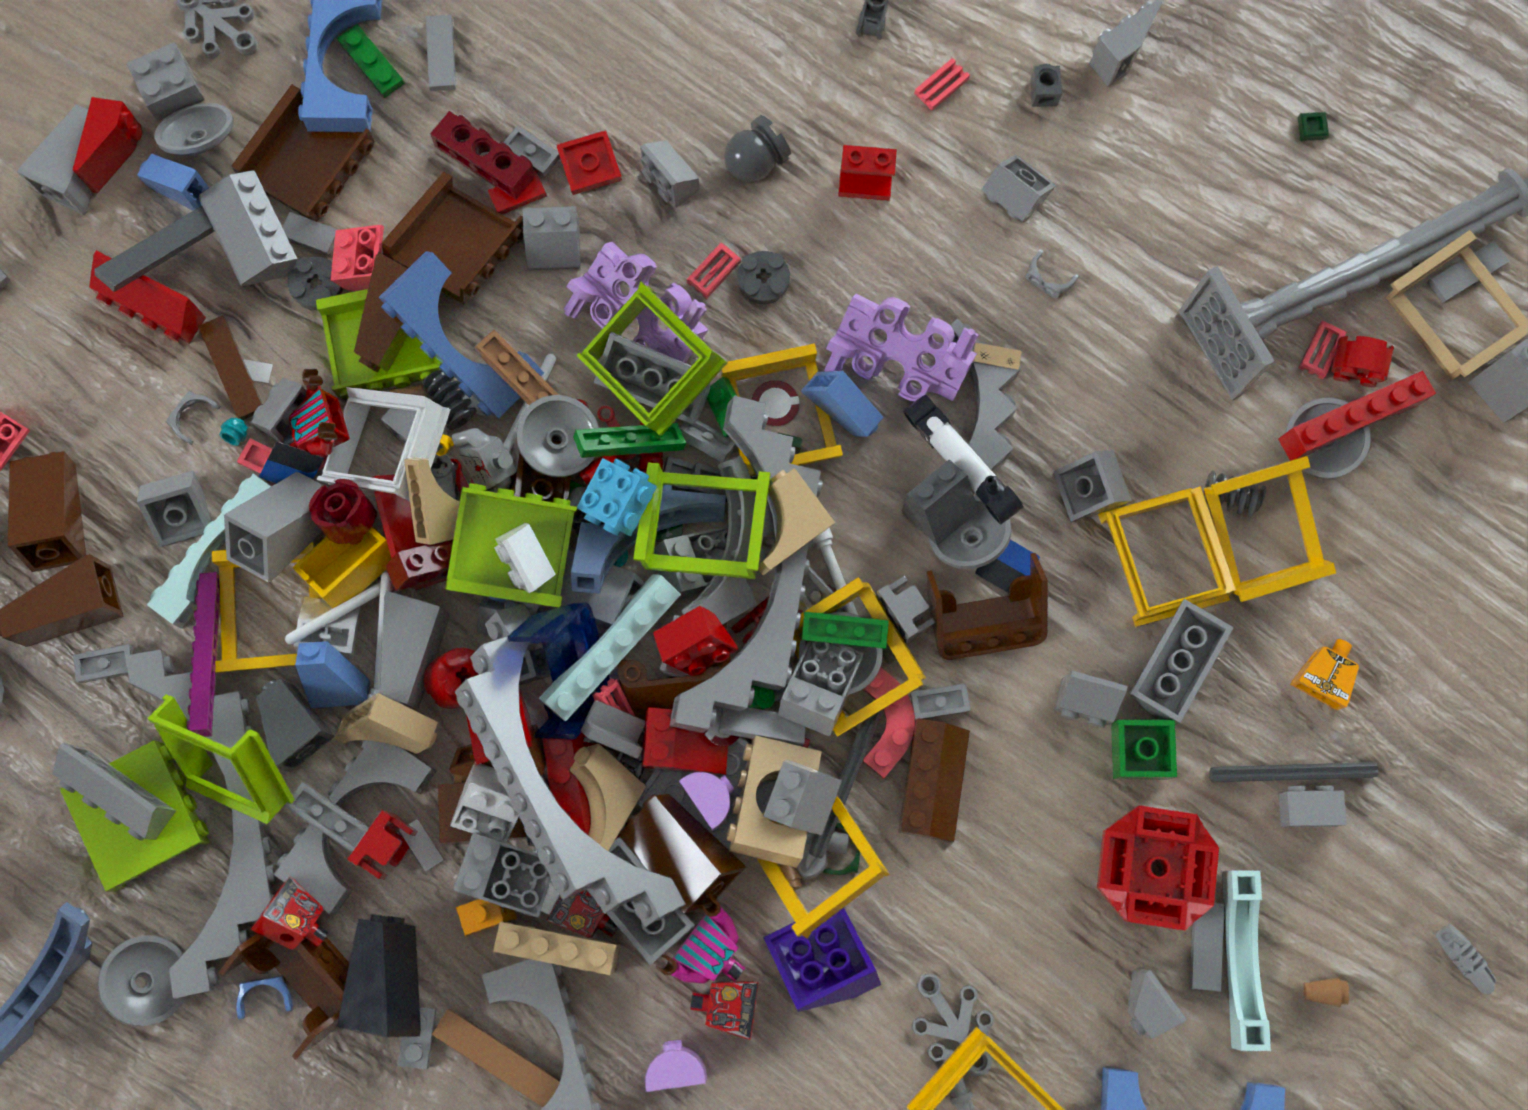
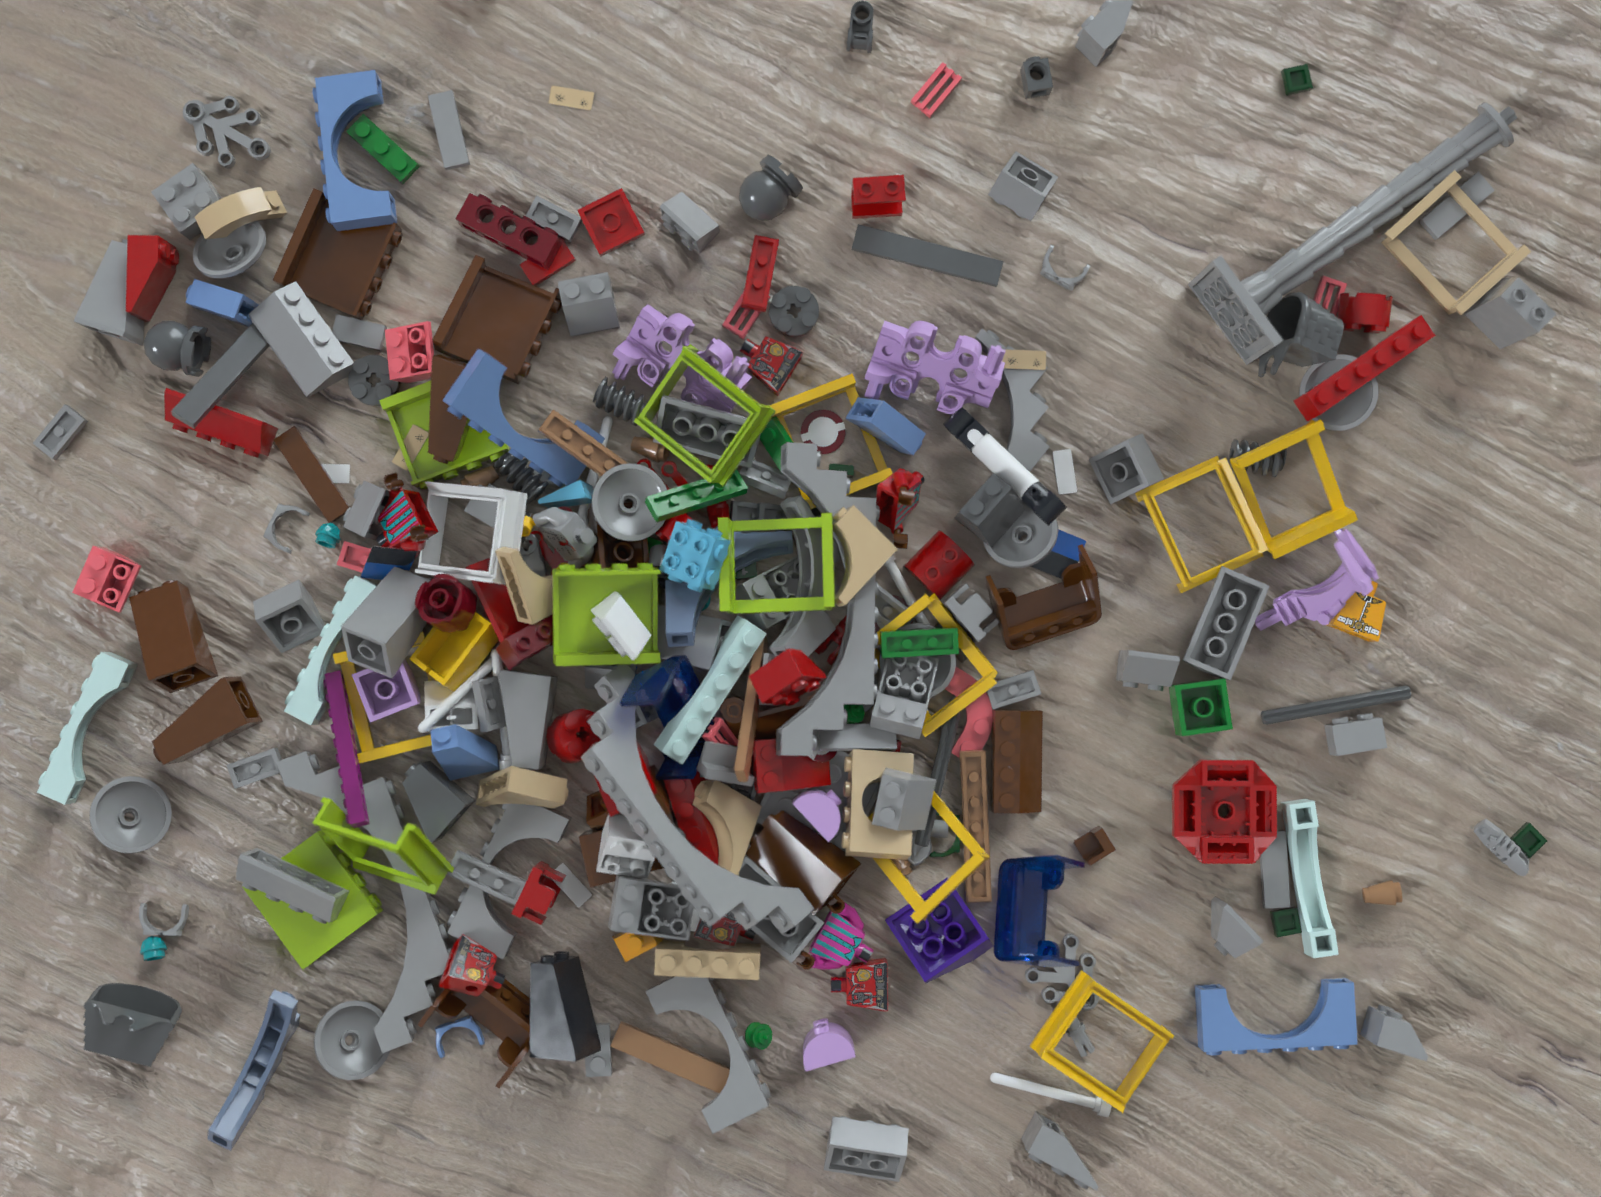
camera: 10 degrees left, 10 degrees up
(119, 217) = (177, 347): none -> dark grey tile
(210, 91) = (237, 210): none -> tan arch
(260, 602) = (385, 694): none -> lavender brick
(343, 351) = (413, 444): none -> tan sticker
(368, 628) = (489, 704): none -> light grey plate
(500, 424) = (571, 495): none -> medium azure slope
(564, 337) = (619, 401): none -> dark grey piece
(570, 40) = (571, 97): none -> tan sticker
(590, 392) = (649, 449): none -> medium nougat cone
(600, 1047) = (758, 1035): none -> green wheel
(646, 684) = (749, 718): none -> medium nougat tile
(733, 323) = (771, 362): none -> torso
(734, 234) = (760, 273): none -> red tile
(843, 479) = (896, 500): none -> red torso
(879, 556) = (939, 564): none -> red brick
(880, 835) = (975, 820): none -> medium nougat tile
(910, 242) = (927, 255): none -> dark grey tile
(920, 946) = (1023, 910): none -> clear blue windscreen
(1008, 887) = (1094, 845): none -> reddish brown panel
(1026, 480) = (1064, 471): none -> white sticker
(1214, 1008) = (1285, 922): none -> dark green tile
(1297, 650) = (1330, 596): none -> lavender piece
(1300, 370) = (1307, 331): none -> dark grey piece
(1497, 955) = (1528, 839): none -> dark green tile

